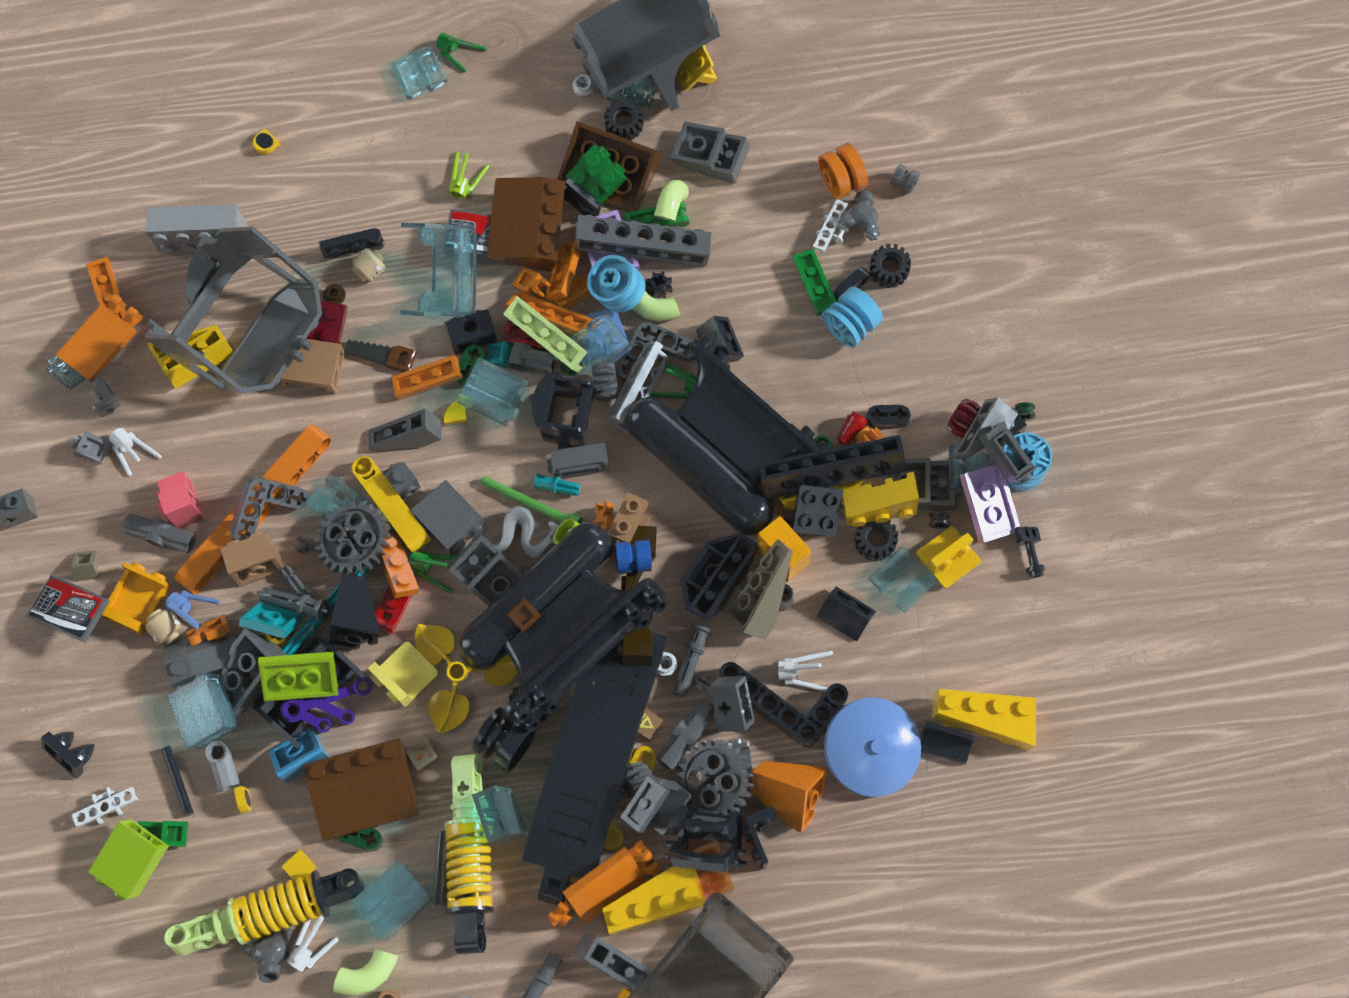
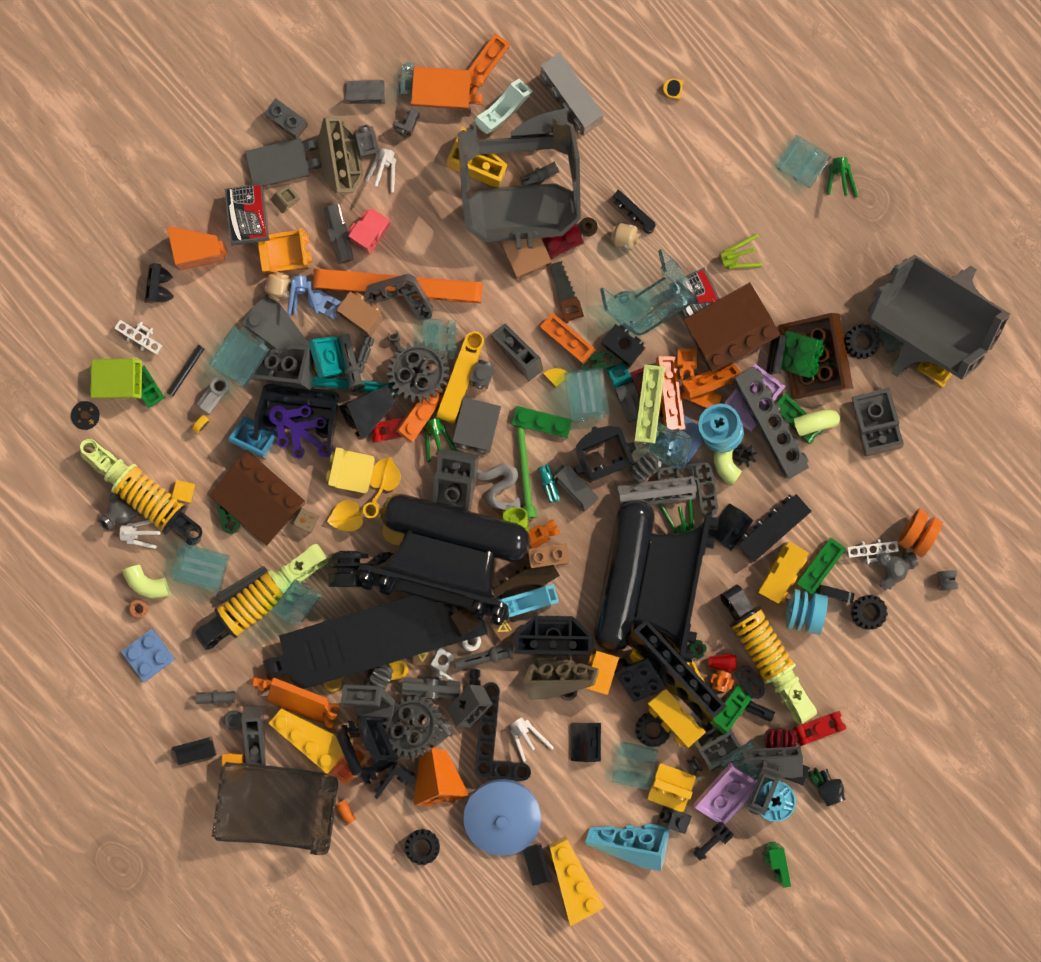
camera: 50 degrees right, 15 degrees up
(45, 420) = (365, 92): none -> flat silver panel
(46, 543) = (281, 162): none -> dark grey tile
(60, 682) = (195, 248): none -> orange slope
(81, 481) = (339, 155): none -> dark tan wedge
(143, 923) = (85, 415): none -> piece
(161, 296) = (504, 107): none -> light aqua arch
(210, 630) = (297, 319): orange plate -> none
(211, 590) = (321, 300): none -> light blue plate
(251, 307) = (539, 174): none -> dark grey pin
(298, 676) = (299, 407): lime tile -> none
(491, 455) = (541, 422): none -> green plate
(523, 615) = (433, 532): reddish brown tile -> none
(580, 975) = (233, 720): none -> dark grey tile
(583, 80) = (871, 285): white plate -> none
(633, 556) = (523, 577): blue wheel -> none
(666, 568) = (531, 600): none -> medium azure arch
(673, 622) = (504, 630): none -> medium nougat tile
(676, 712) = (440, 670): none -> light grey bracket
(748, 301) = (774, 527): none -> black brick
(762, 915) = (345, 812): none -> orange pin
(797, 316) = (783, 572): none -> yellow wedge
(864, 846) = (422, 858): none -> black tyre
(870, 376) = (768, 651): none -> piece
(912, 451) = (734, 708): none -> green plate
(929, 421) = (760, 711): none -> black piece
(977, 378) = (820, 728): none -> red plate
(983, 574) = (674, 819): none -> black bracket
(991, 624) = (636, 845): none -> medium azure wedge
(1048, 404) = (831, 790): none -> black piece
(1092, 493) = (776, 859): none -> green plate

